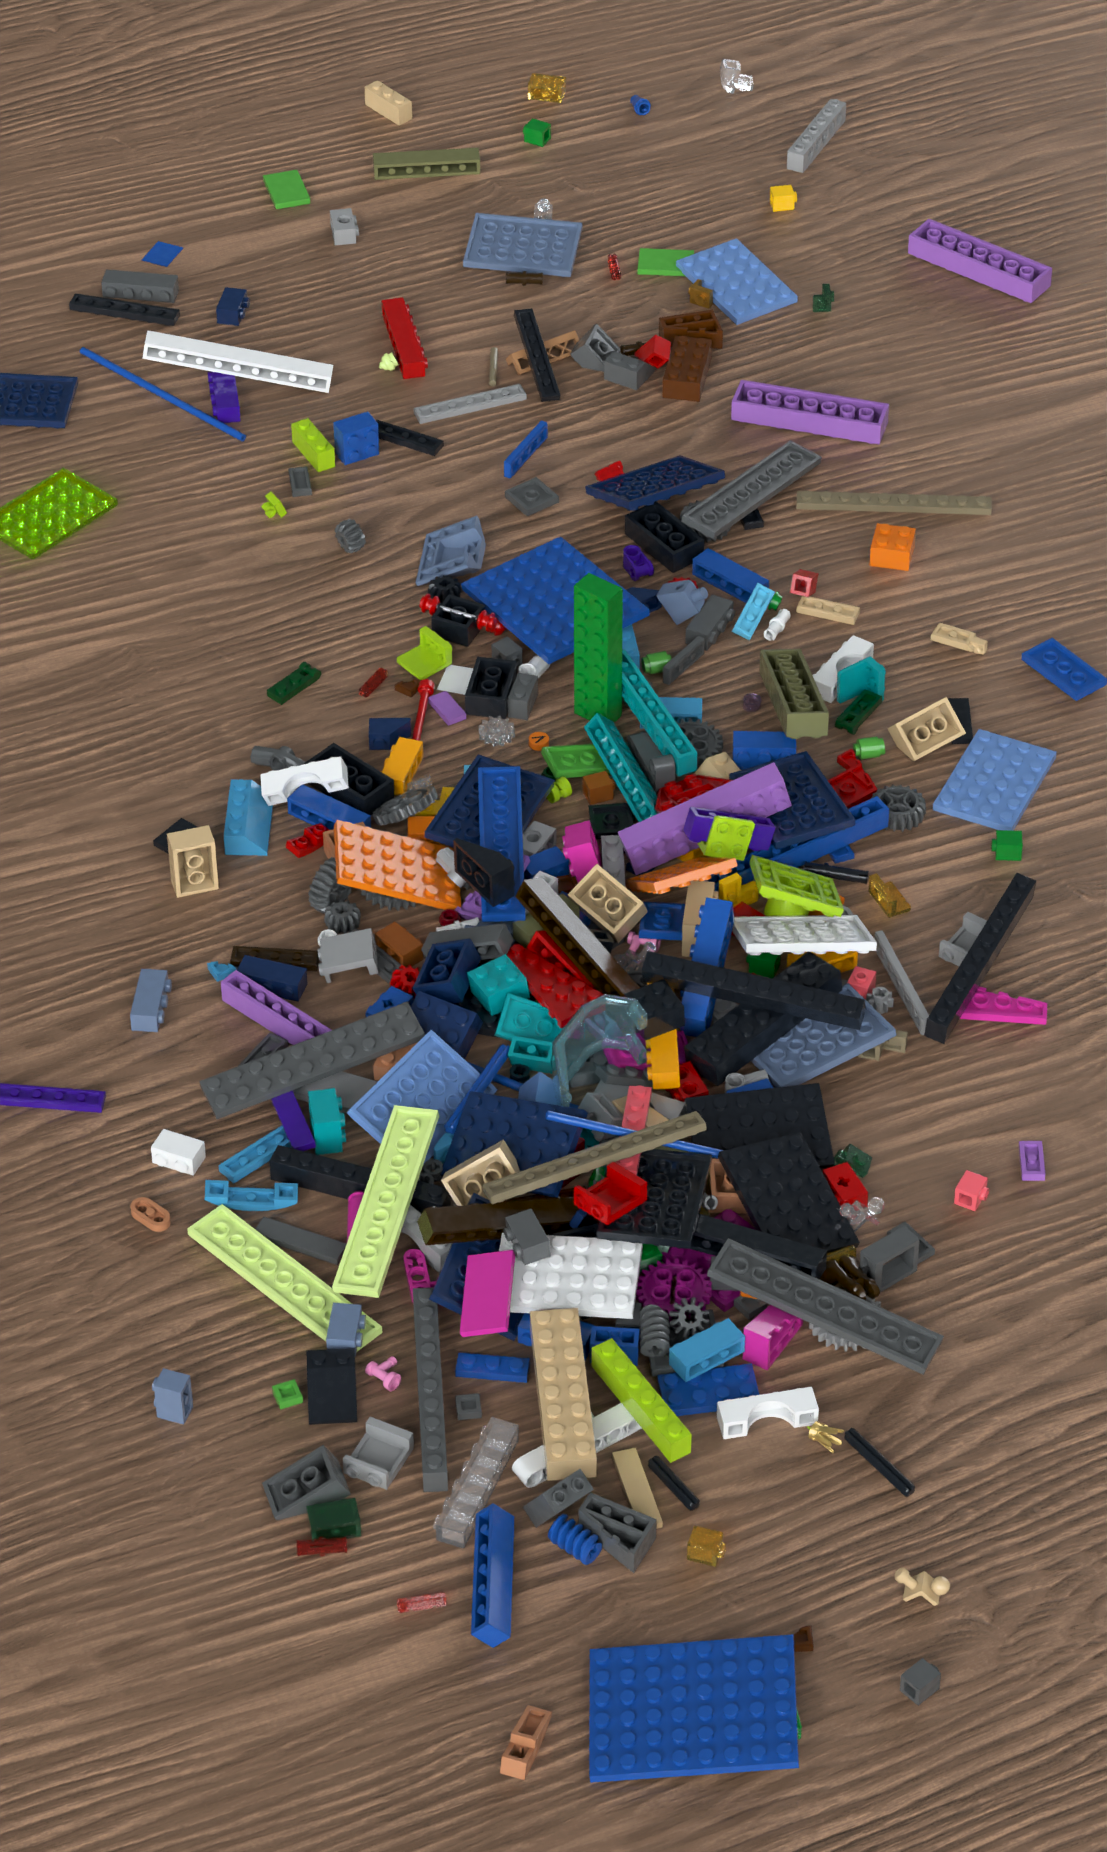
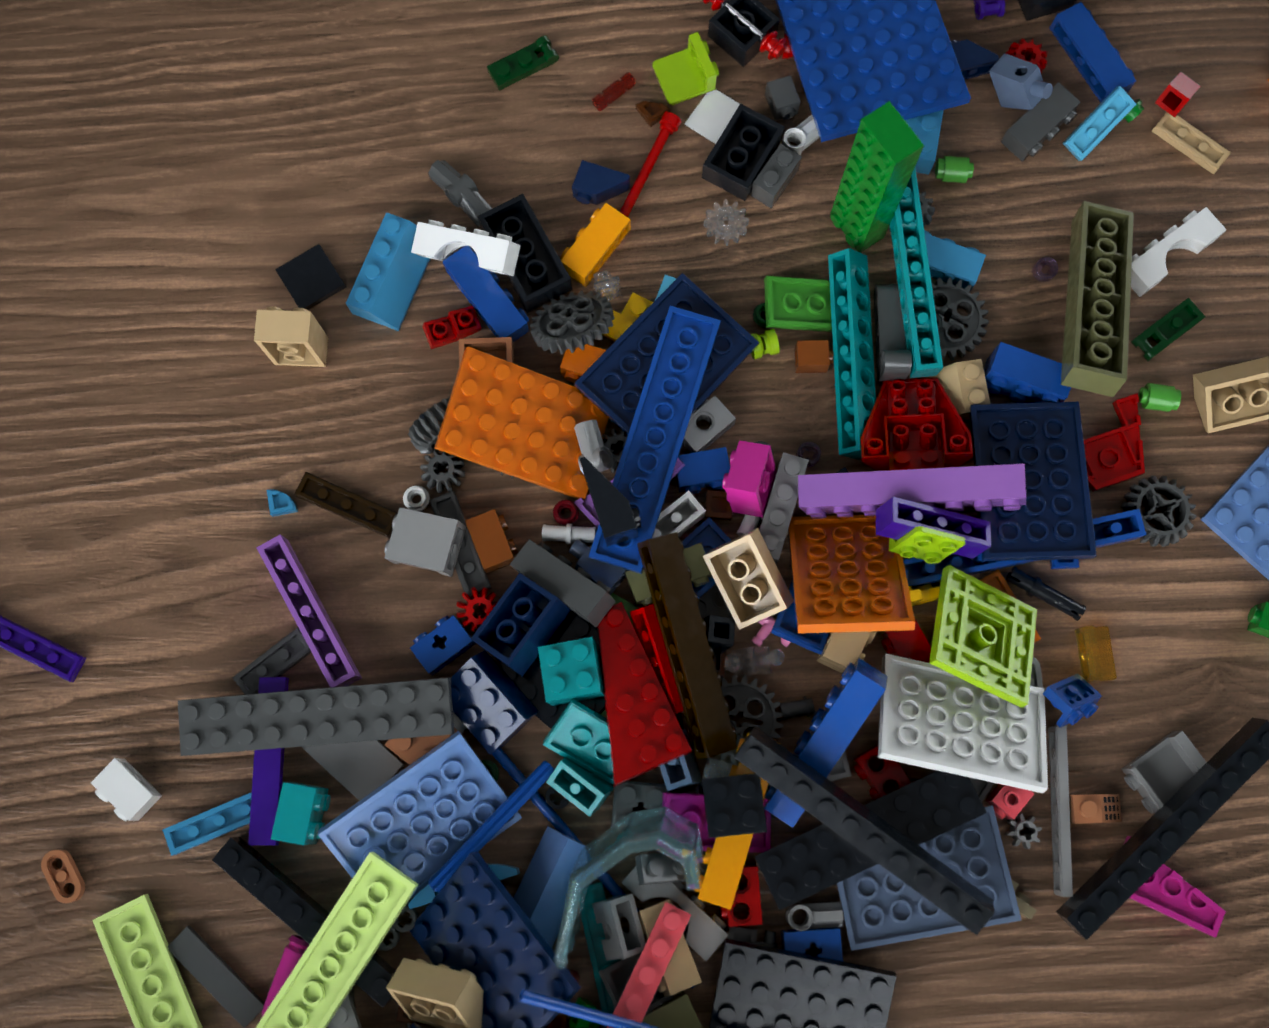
camera: 20 degrees right, 35 degrees up
(150, 1000) = (180, 530): sand blue brick -> none
(251, 1199) = (182, 887): dark azure slope -> none
(279, 978) = (327, 544): dark blue brick -> none
(447, 708) = (684, 161): medium lavender tile -> none
(538, 740) = (771, 251): orange tile -> none
(609, 818) = (808, 415): black plate -> none
(683, 660) = (987, 175): dark grey tile -> none
(777, 624) = (1120, 150): white pin -> none
(862, 675) = (1201, 284): teal bracket -> none
(882, 918) = (1073, 698): none -> blue bracket
(925, 974) = (1095, 808): none -> nougat slope

